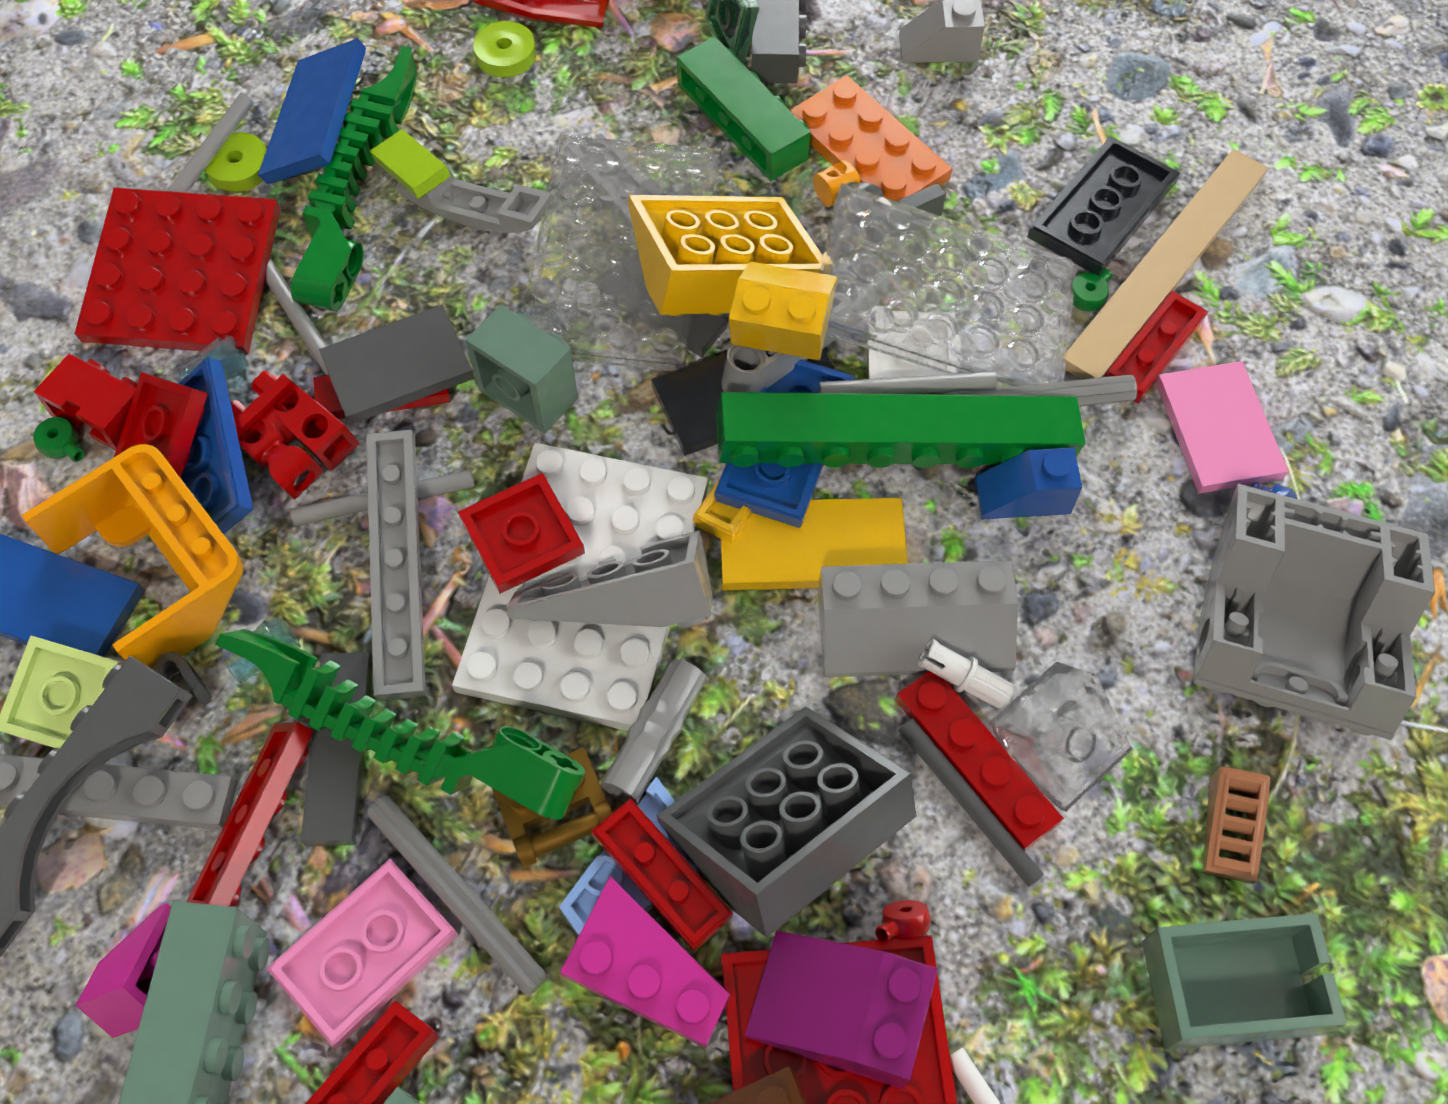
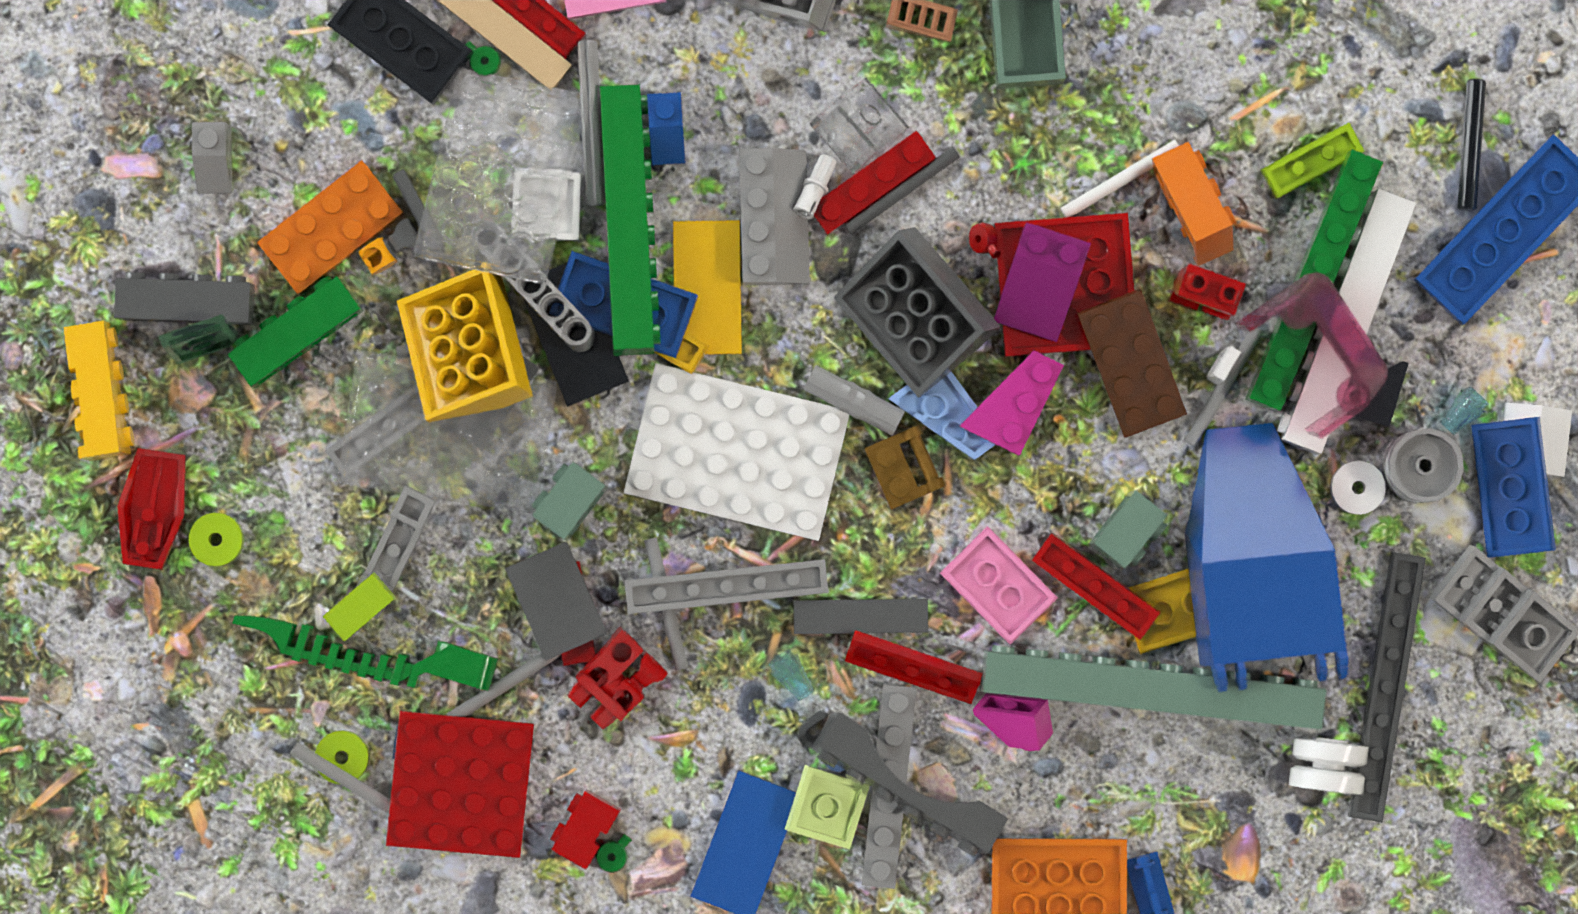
camera: 90 degrees left, 25 degrees up
(142, 497) = (677, 763): light orange windscreen -> none
(163, 417) = (618, 768): red plate -> none
(216, 462) = (638, 736): blue tile -> none
(225, 350) = (550, 743): clear light blue cone -> none
(312, 112) = (299, 693): blue tile -> none
(457, 895) = (961, 529): light grey axle -> none
(512, 765) = (886, 493): green piece -> none
(521, 533) = (710, 495): red plate -> none
(654, 590) = (756, 408): light grey wedge -> none
(662, 875) = (956, 393): red tile -> none
(782, 310) = (542, 301): yellow slope -> none
(914, 384) = (585, 211): light grey piece -> none

